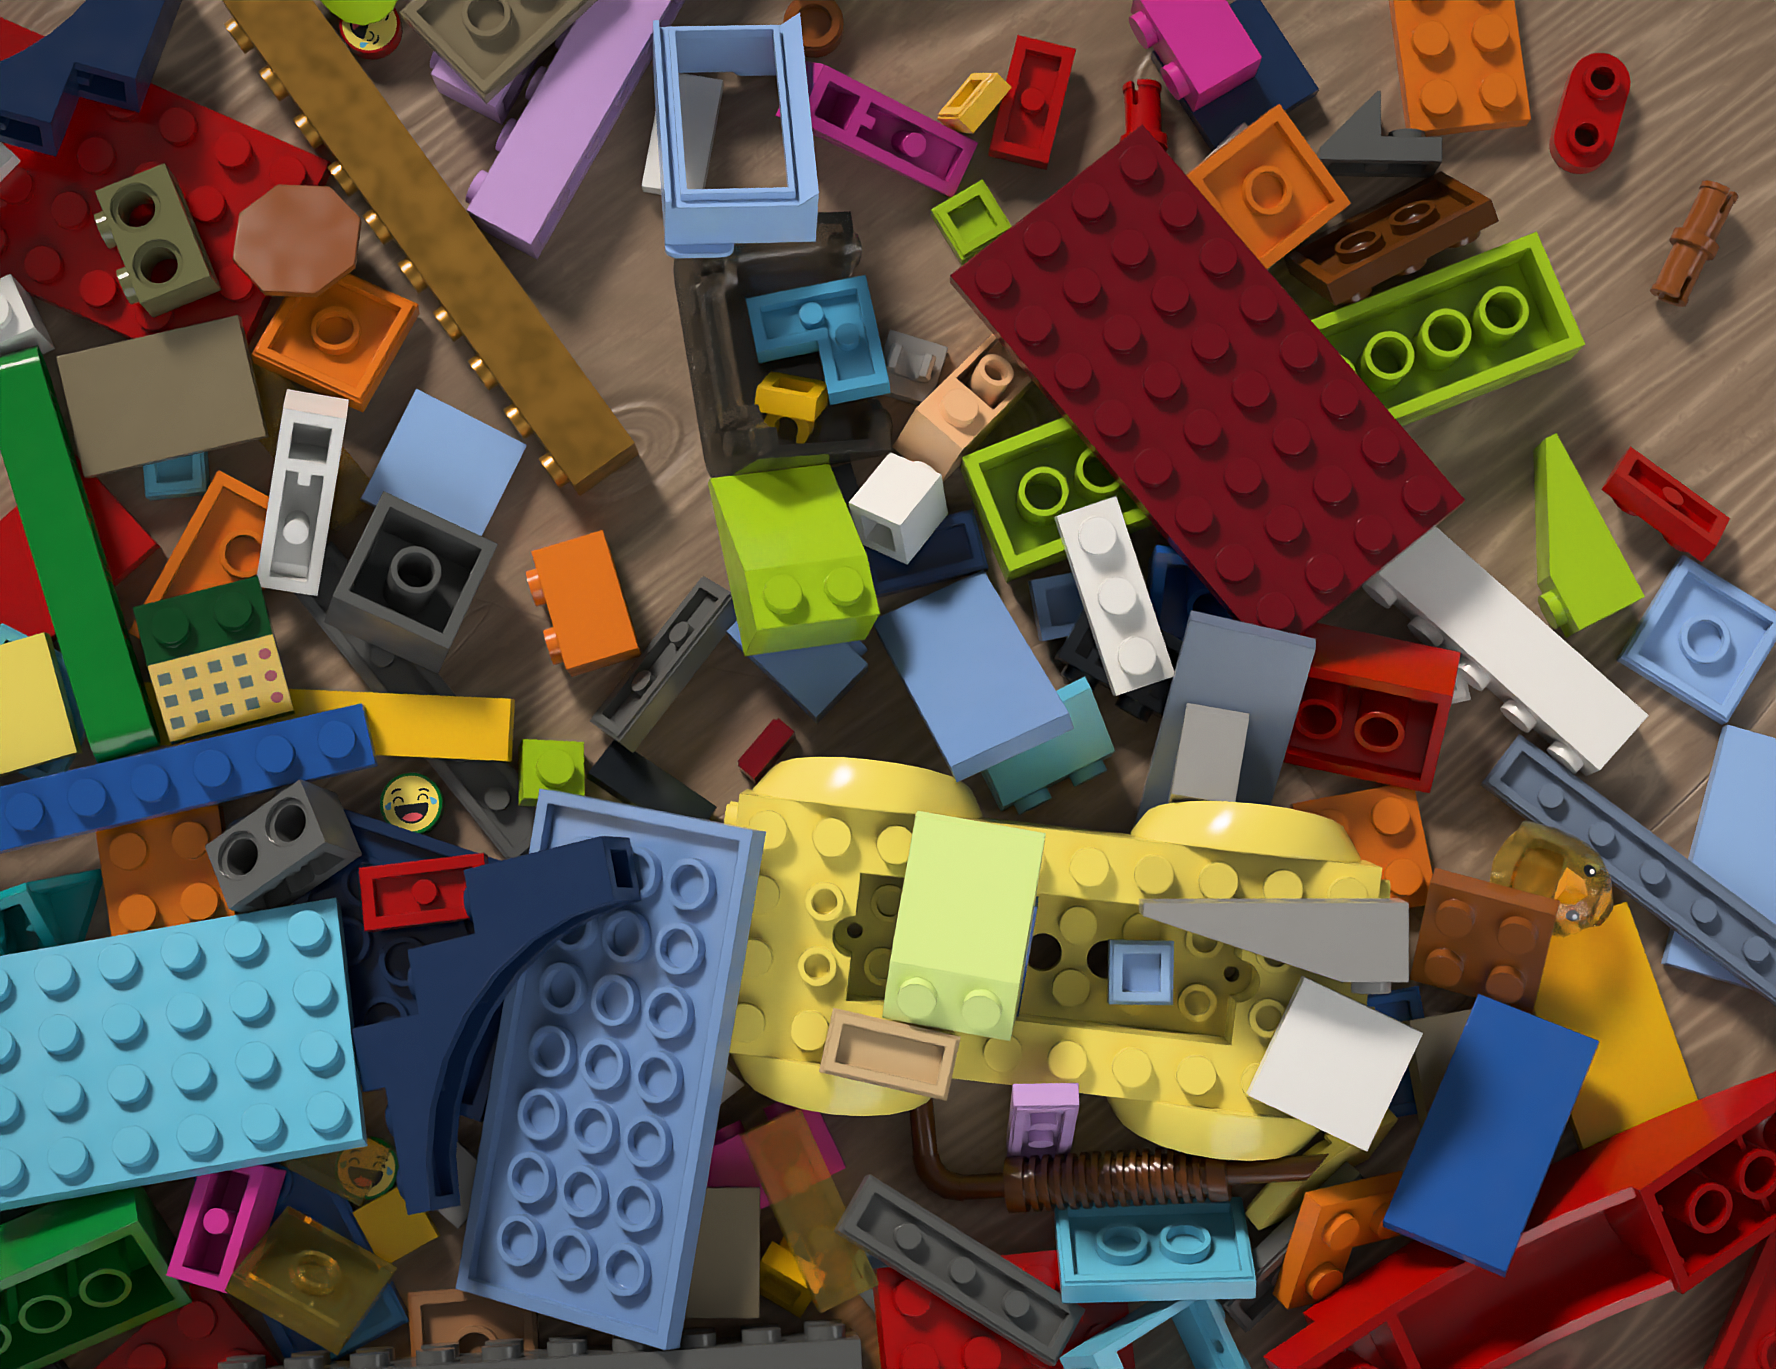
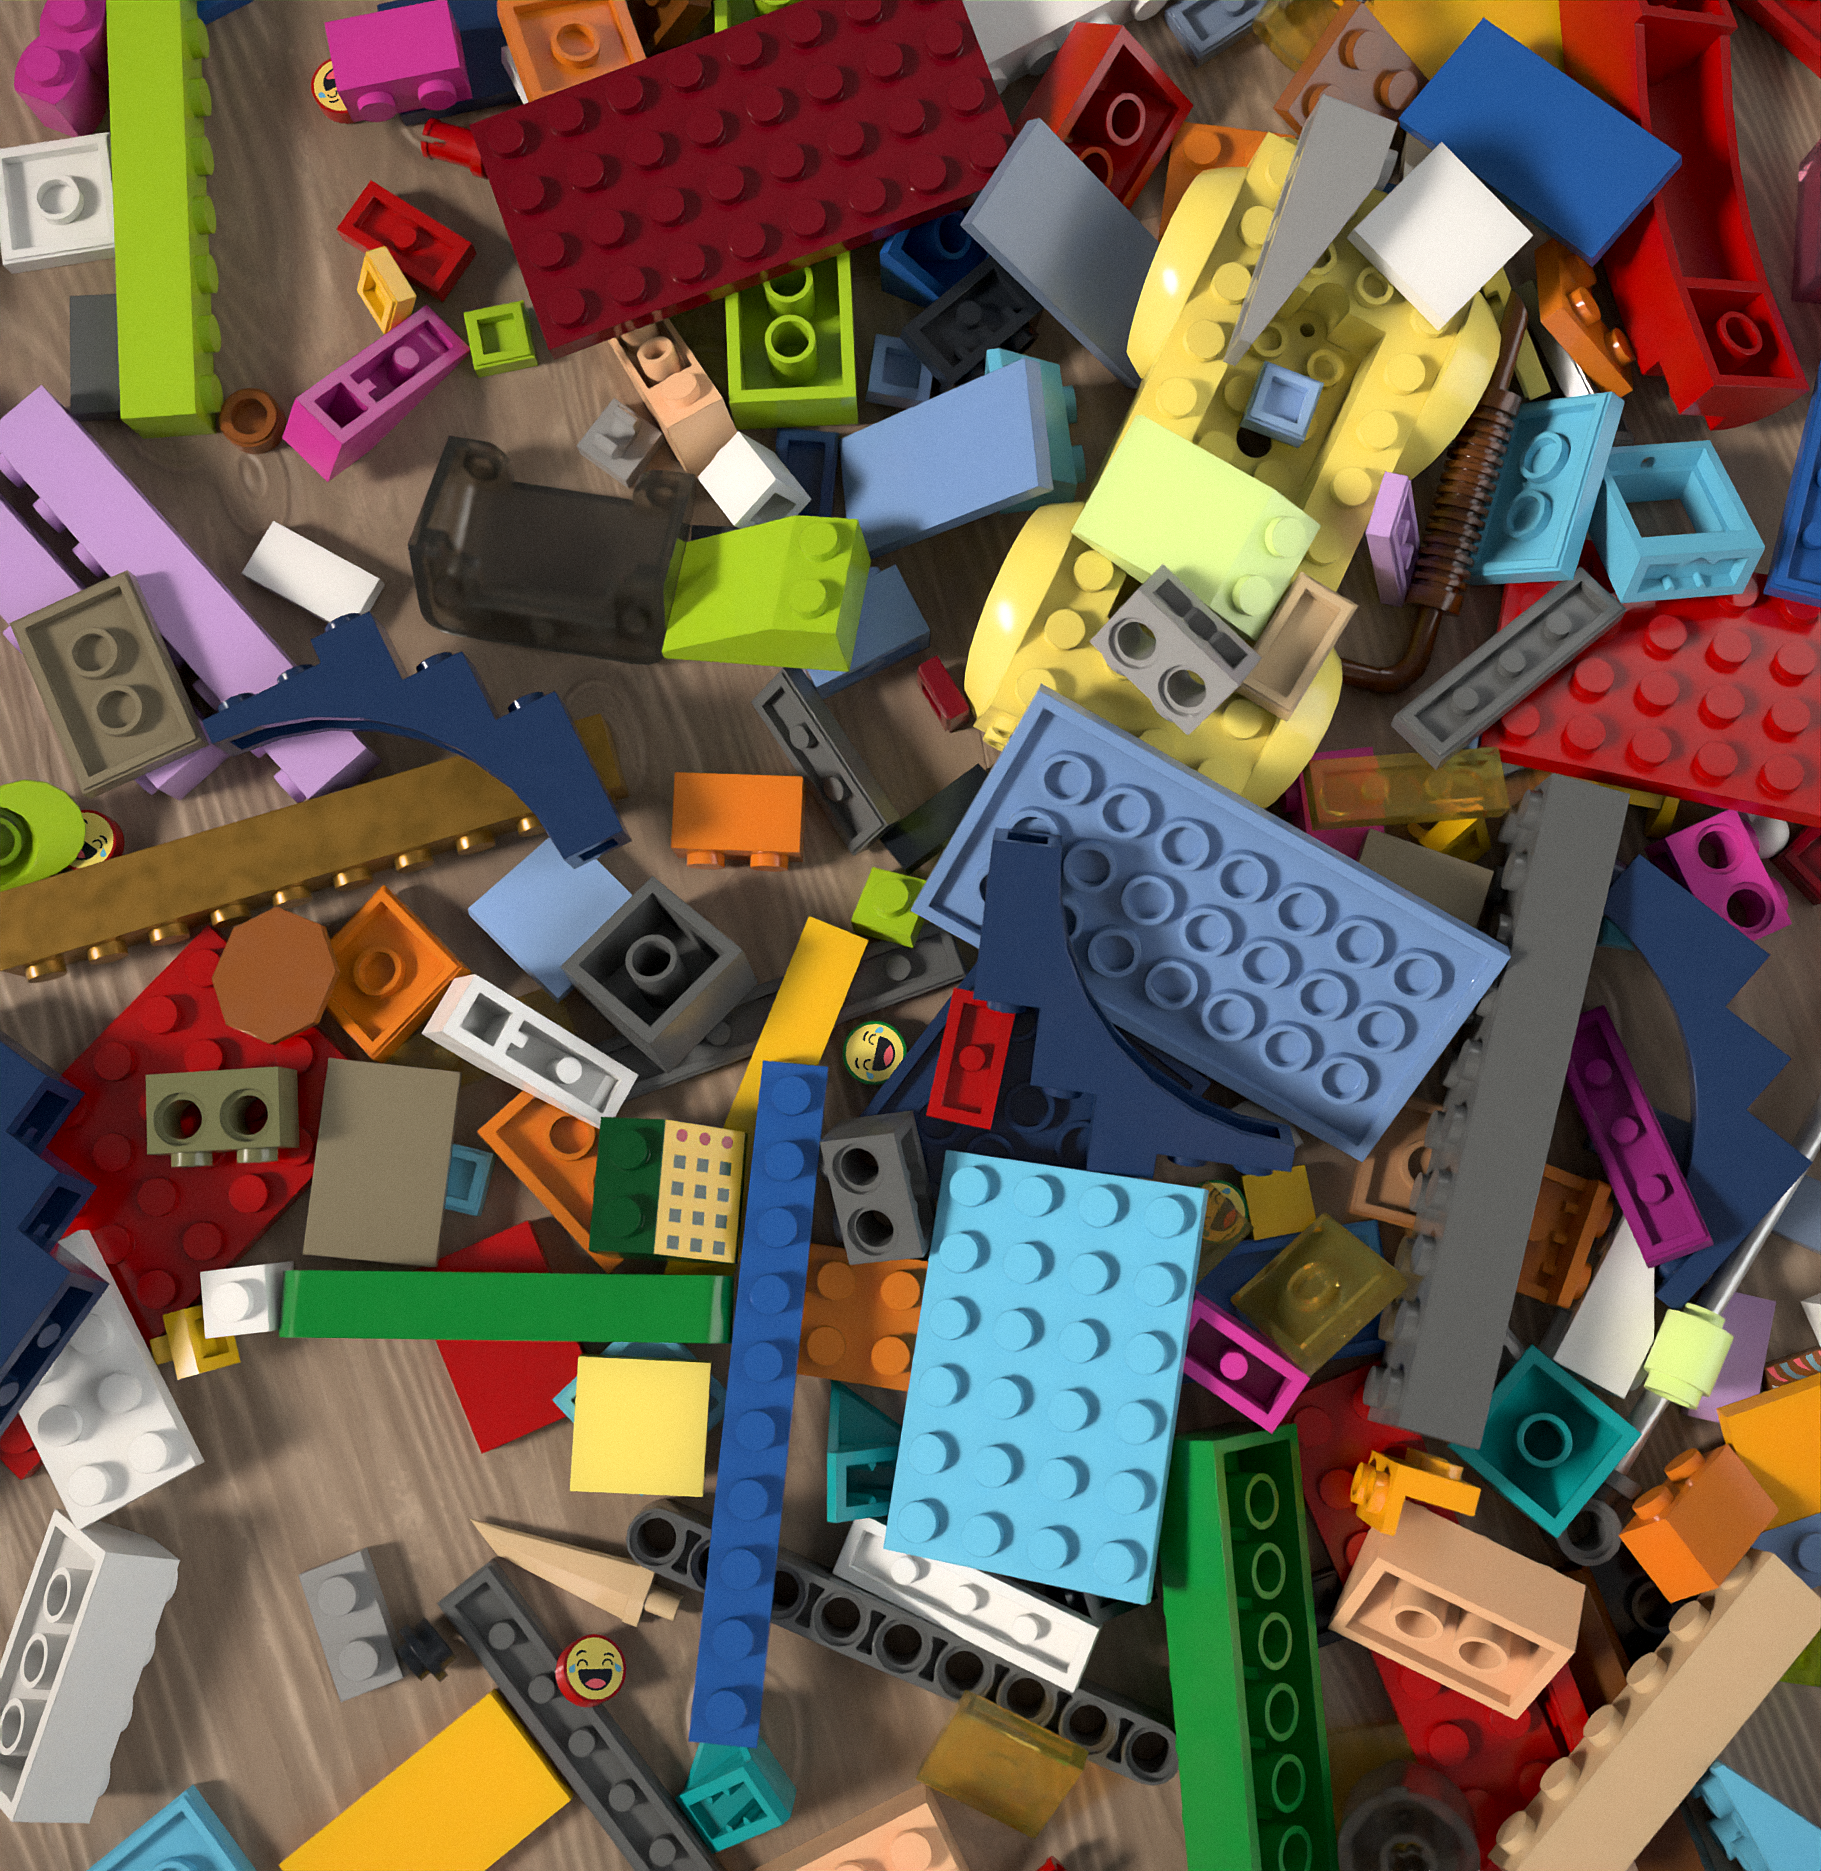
camera: 65 degrees left, 0 degrees up
(567, 398) = (444, 704): none -> dark blue arch
(712, 220) = (409, 543): light blue piece -> none
(793, 398) = (612, 551): yellow tile -> none
(829, 319) = (549, 490): dark azure plate -> none
(834, 943) = (1185, 639): none -> light grey brick
(1114, 596) = (914, 306): white plate -> none
(1209, 755) = (1102, 270): light grey slope -> none

